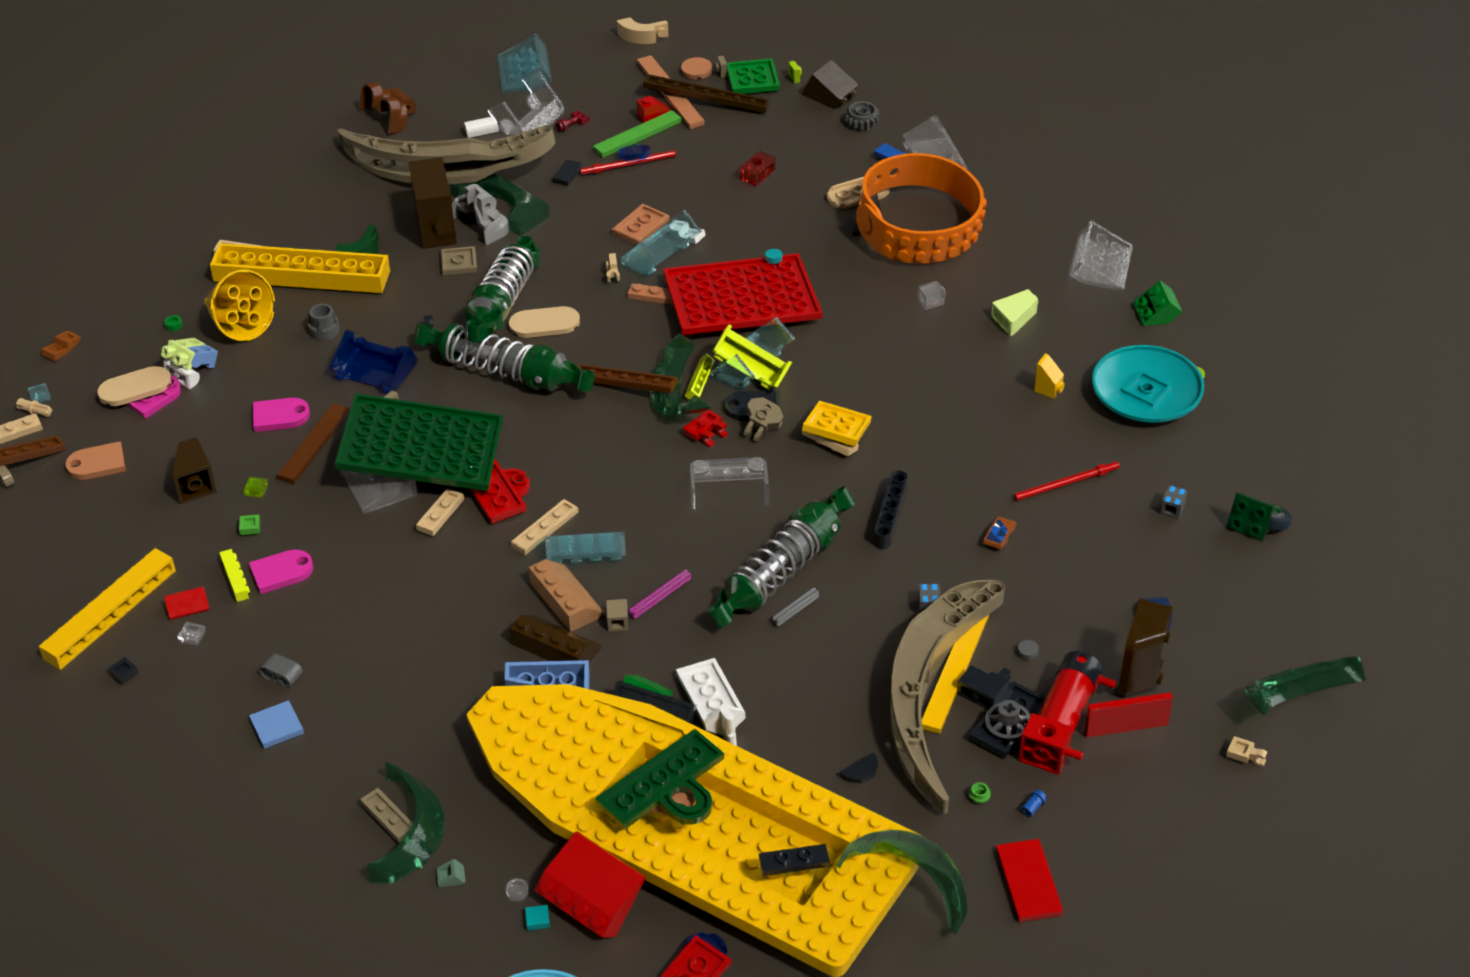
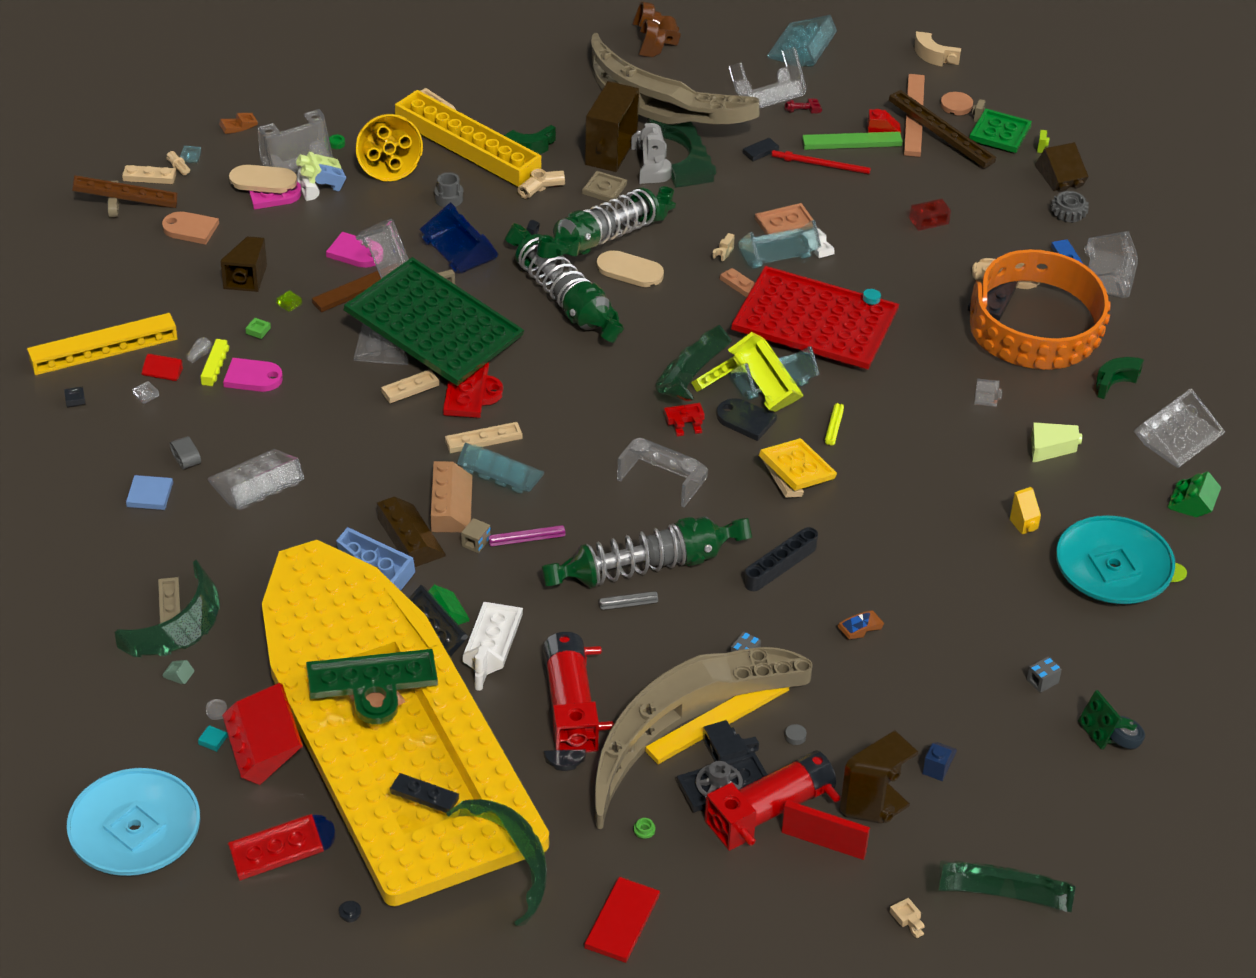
camera: 30 degrees right, 0 degrees up
(144, 344) = (284, 147): none -> clear windscreen
(209, 566) = (199, 349): none -> clear cone
(325, 399) = (384, 246): none -> clear windscreen
(371, 660) = (257, 478): none -> clear slope
(398, 279) = (539, 181): none -> tan piece
(480, 127) = (718, 79): white brick -> none
(630, 152) = (835, 155): clear blue tile -> none
(632, 379) = (654, 346): reddish brown tile -> none
(763, 417) = (739, 430): dark tan hinge -> none
(832, 377) = (834, 424): none -> neon yellow axle
(850, 730) = (573, 711): none -> red piece
(1015, 231) = (1118, 370): none -> dark green arch
(1034, 802) = (682, 860): blue pin -> none
(1099, 470) = (1003, 615): red bar -> none

